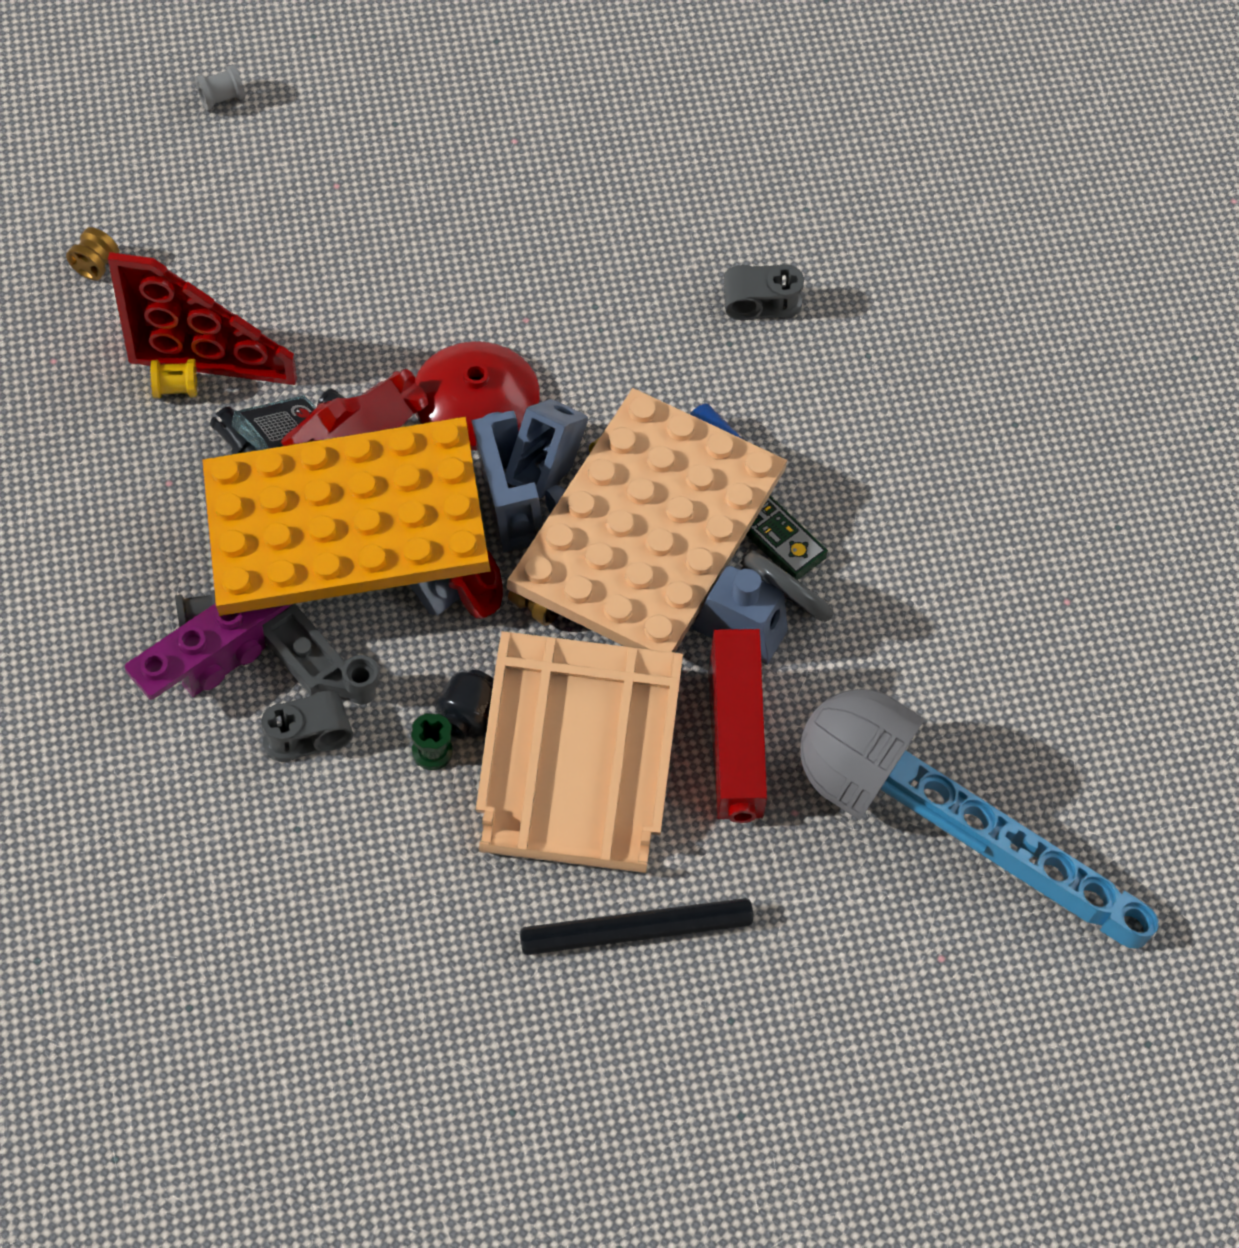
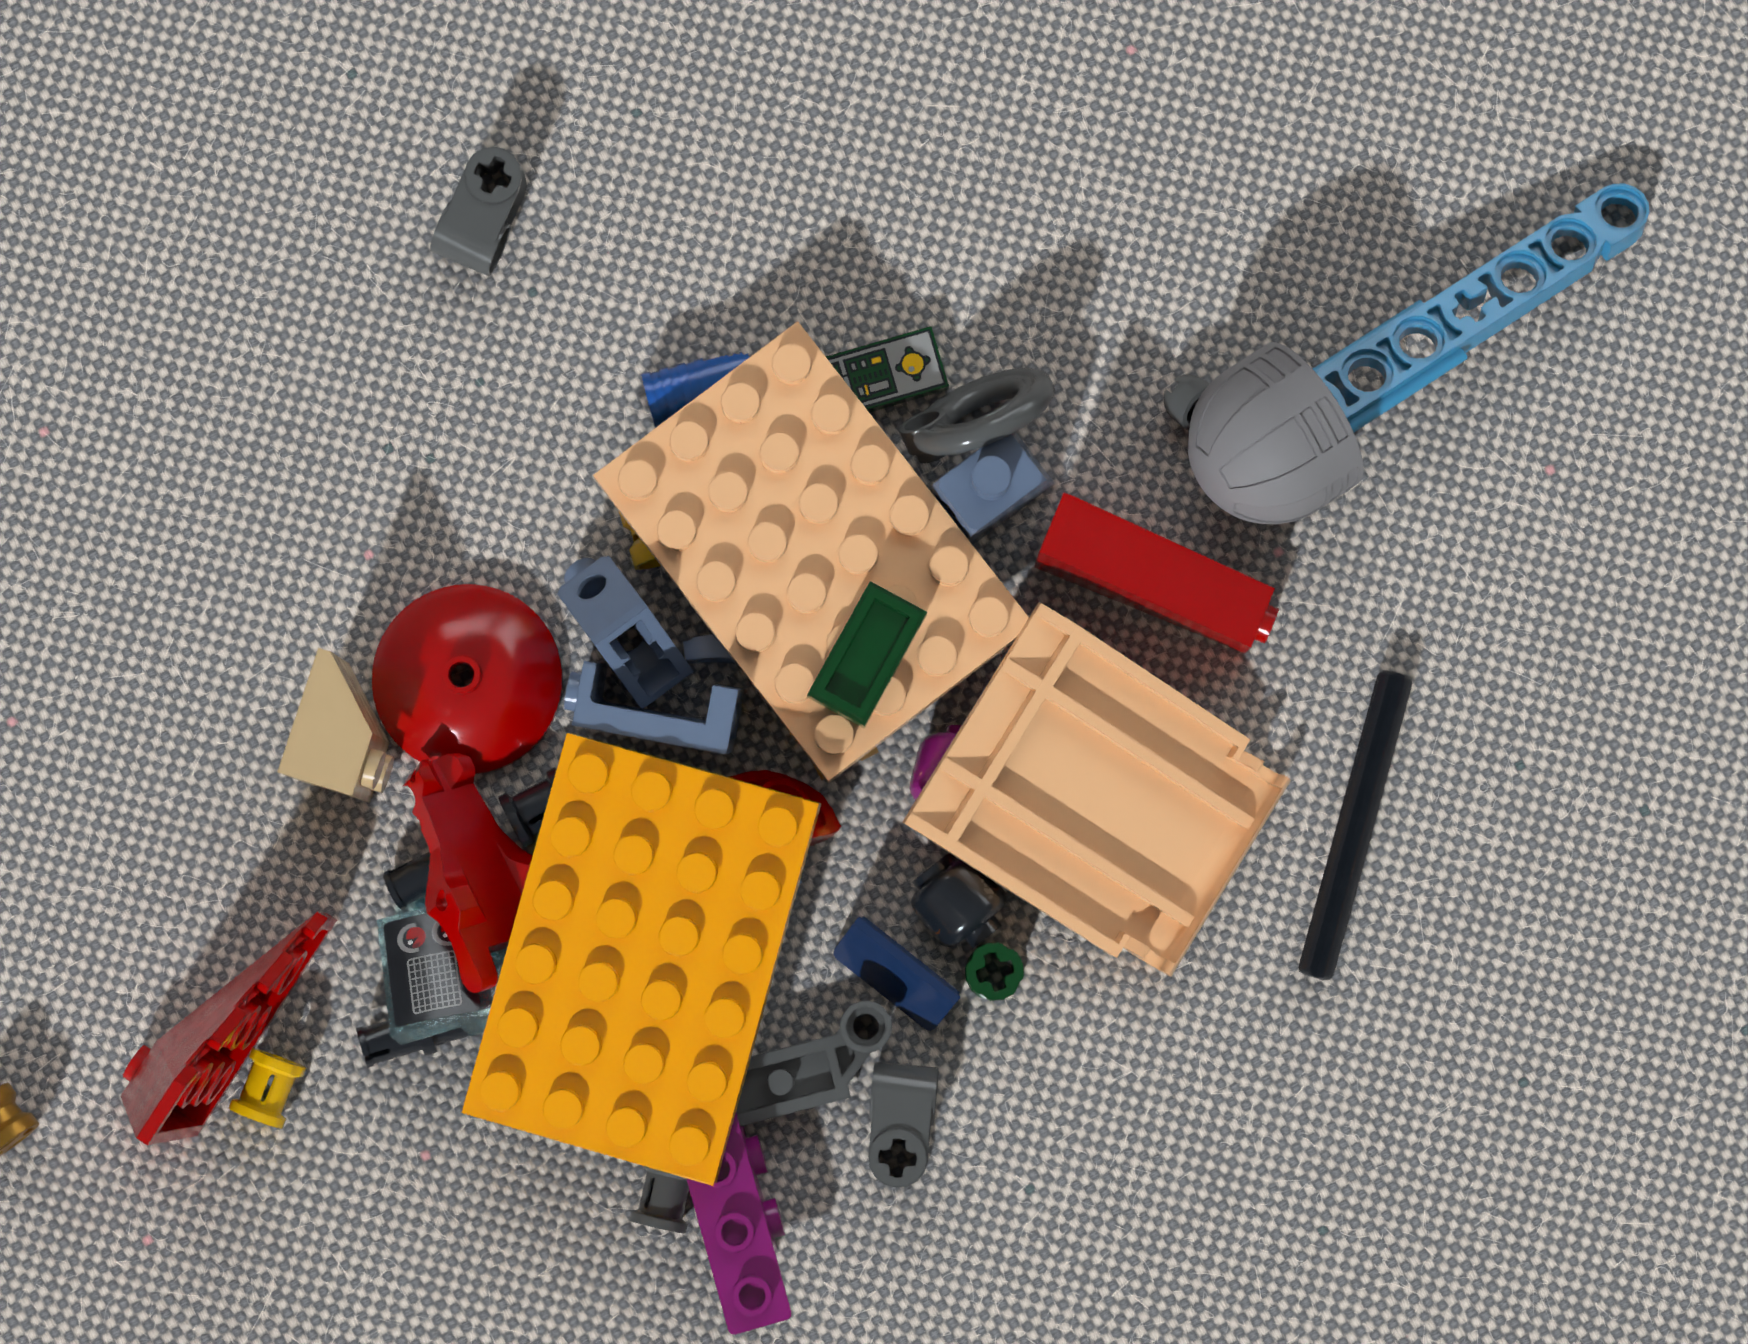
camera: 60 degrees left, 25 degrees up
(406, 690) = (896, 973): none -> dark blue slope
(410, 322) = (337, 734): none -> tan slope
(598, 563) = (867, 654): none -> dark green tile

